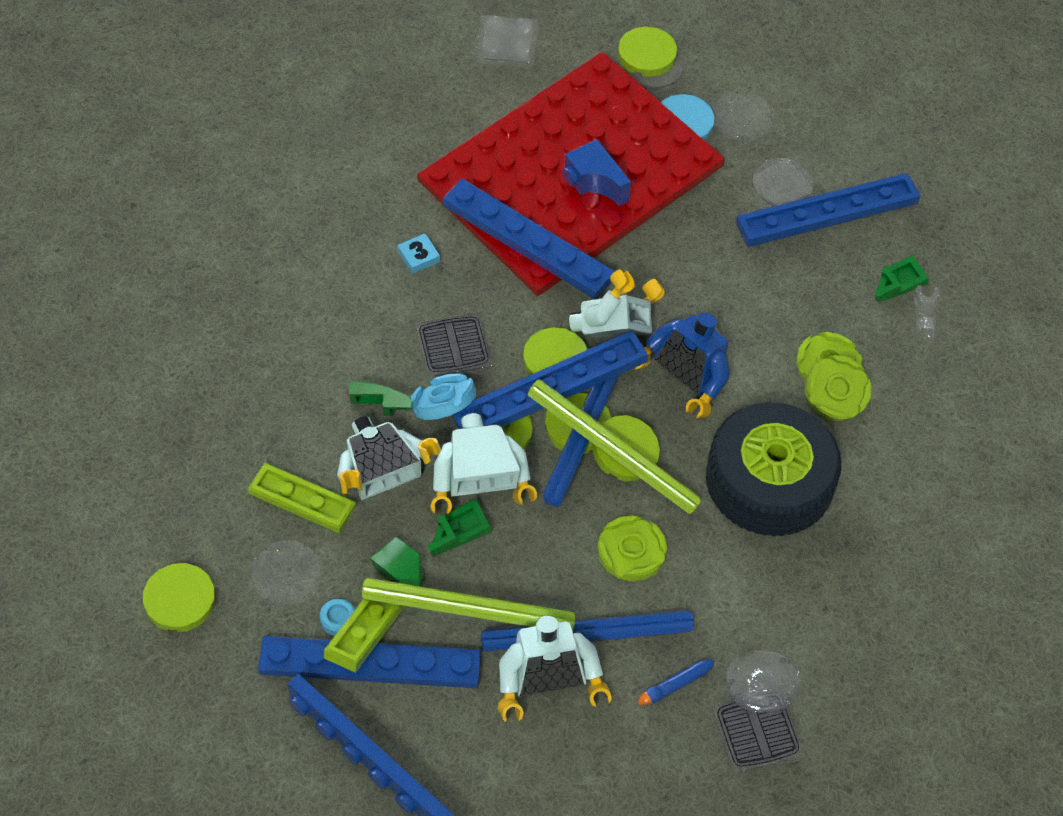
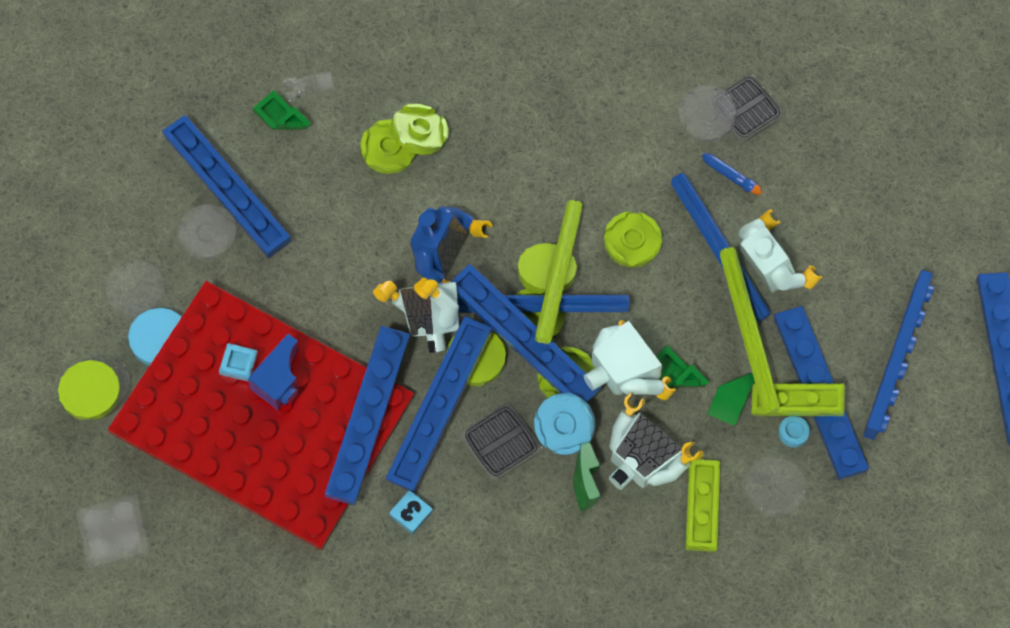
camera: 110 degrees left, 10 degrees up
(179, 597) = (836, 560): lime tile -> none
(513, 300) = (439, 404): none -> blue plate
(626, 152) = (238, 362): none -> medium azure tile
(773, 469) = (525, 150): black wheel -> none

